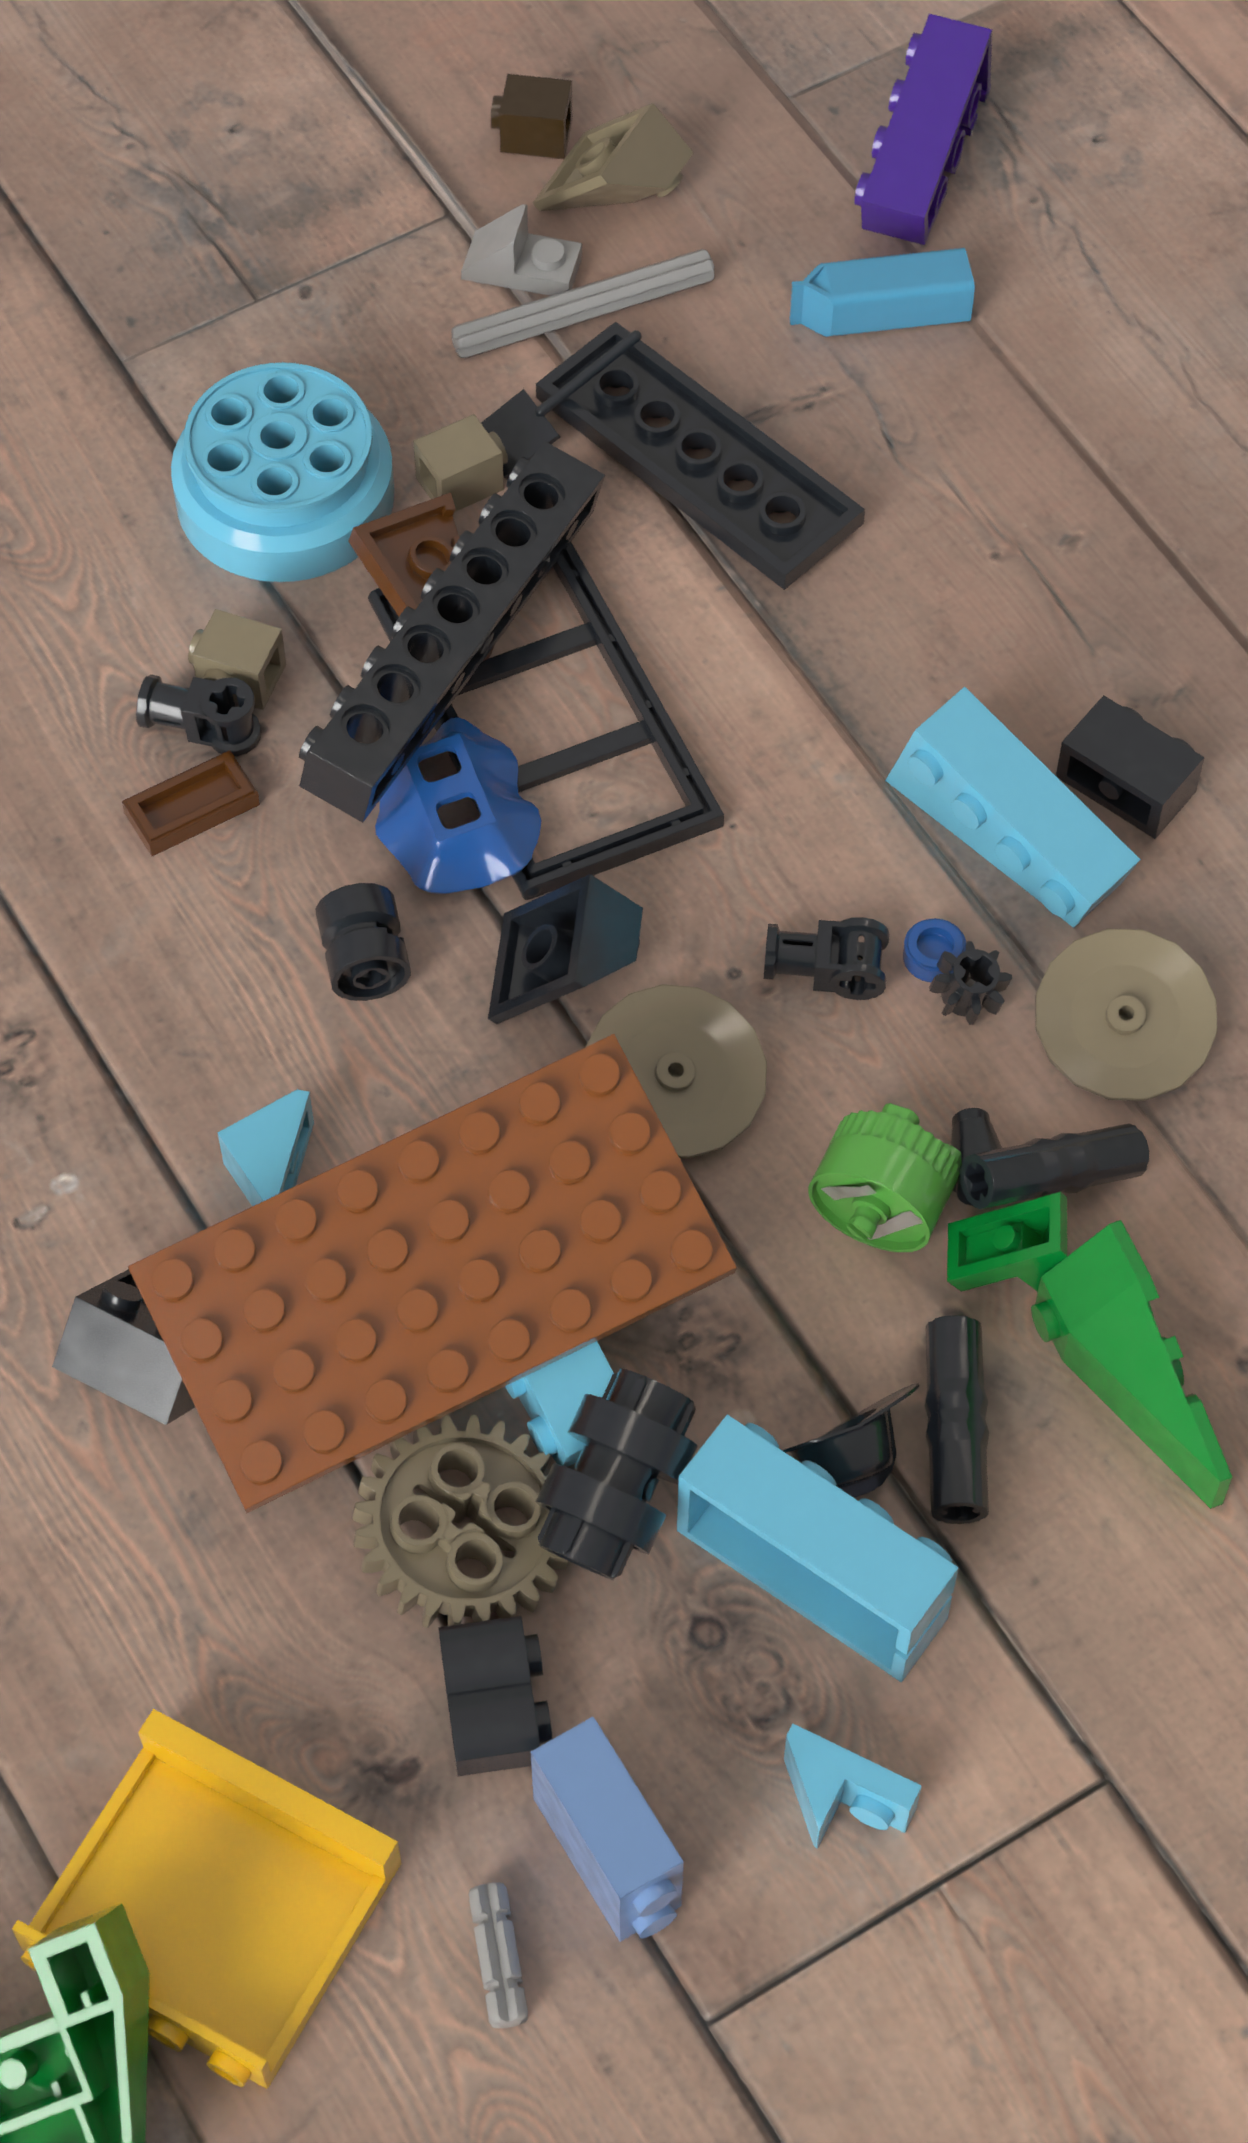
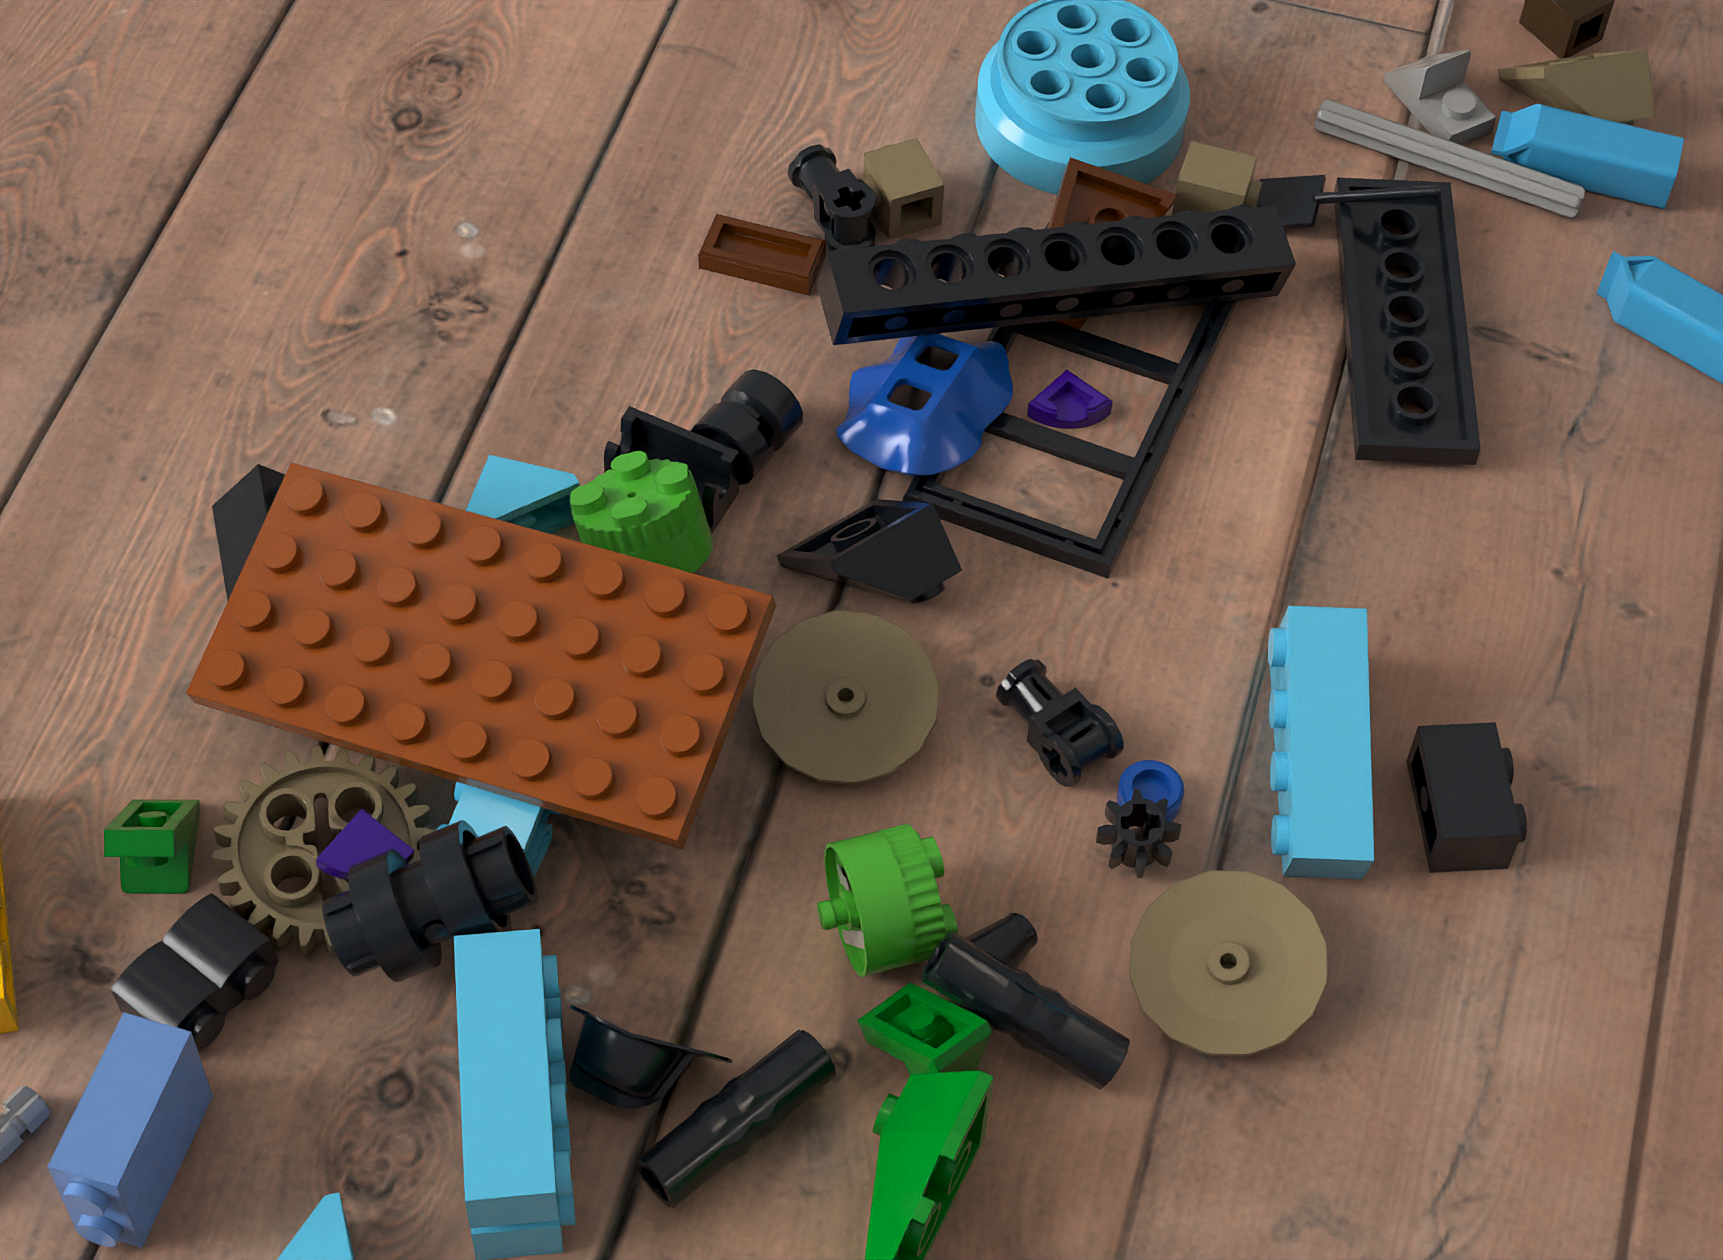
camera: 45 degrees right, 5 degrees down
(334, 1637) = (154, 845): none -> green slope
(347, 1025) = (711, 463): none -> black hinge
(390, 1074) = (645, 512): none -> bright green piece
(511, 1489) = (357, 842): none -> dark purple tile
(549, 720) = (1069, 404): none -> dark purple tile
(680, 217) = (1592, 152): none -> dark azure piece

